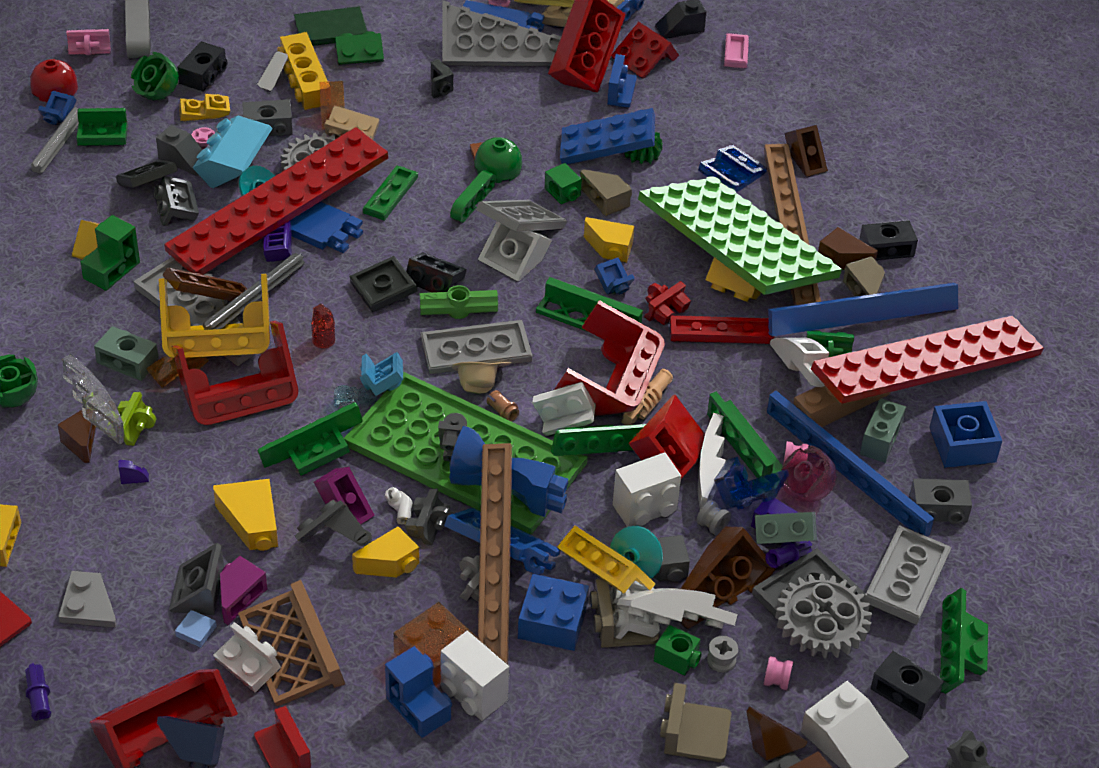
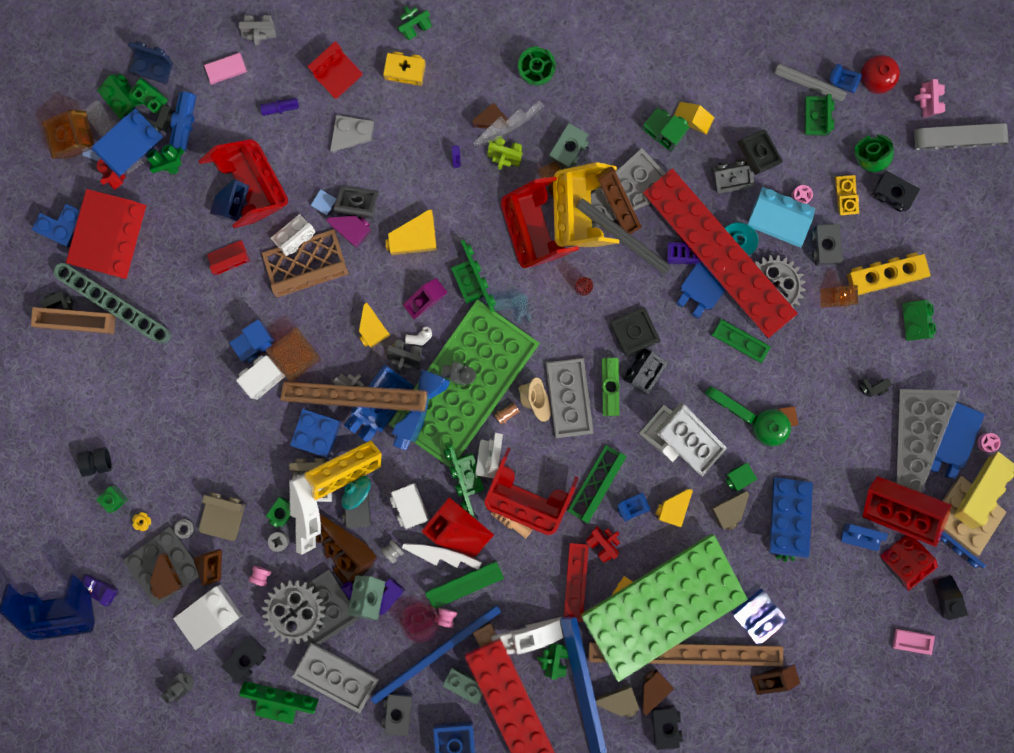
camera: 95 degrees right, 40 degrees up
(178, 147) = (789, 177): dark grey slope -> none
(273, 71) = (887, 248): white sticker -> none
(327, 24) = (952, 297): dark green tile -> none
(339, 518) = (393, 289): dark grey plate -> none
(344, 120) = (813, 311): tan bracket -> none
(383, 375) = (534, 327): dark azure bracket -> none
(739, 492) = (409, 579): clear blue bracket -> none

